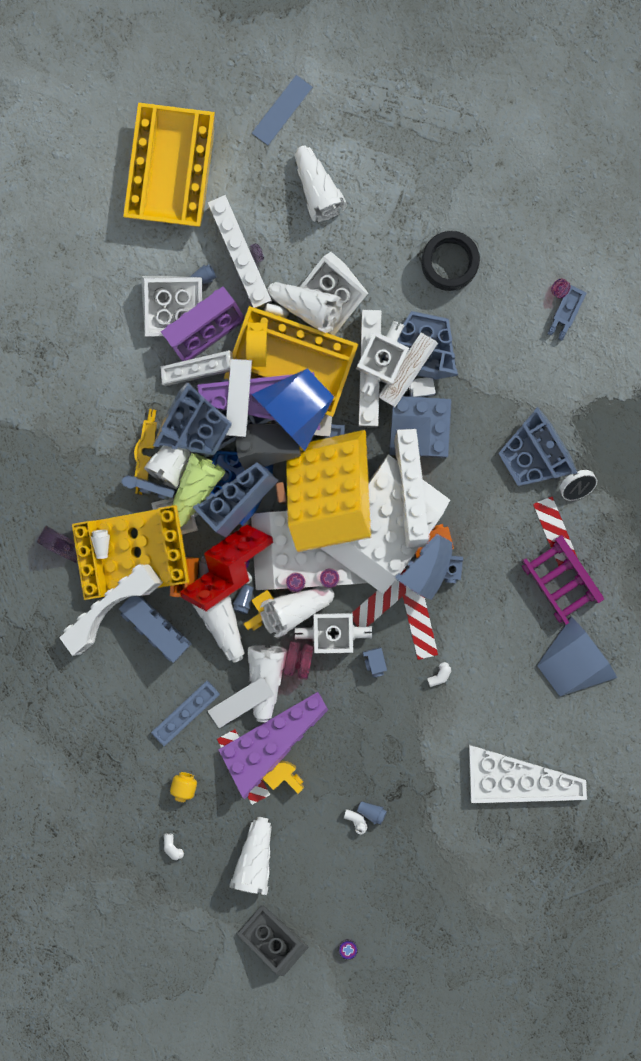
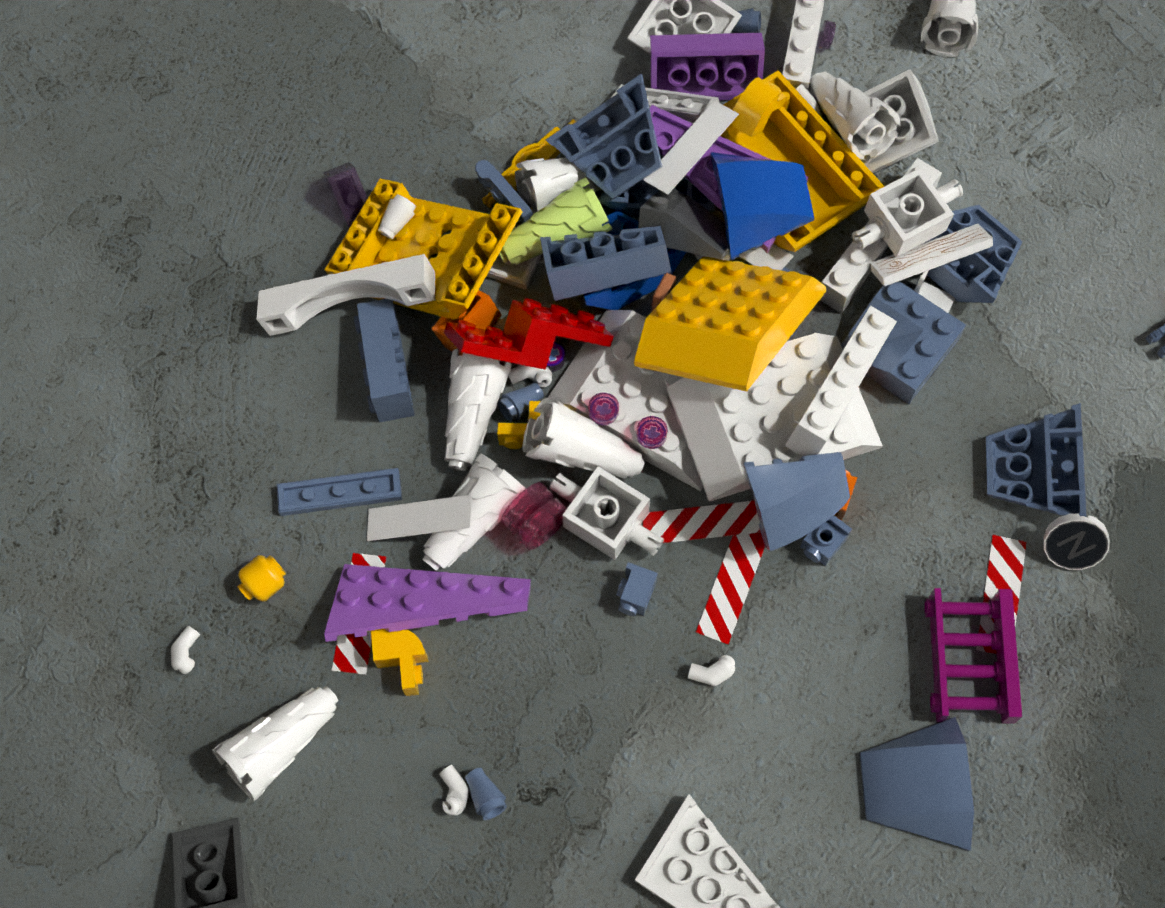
camera: 40 degrees right, 20 degrees down
(456, 238) = (1080, 150): black tyre -> none

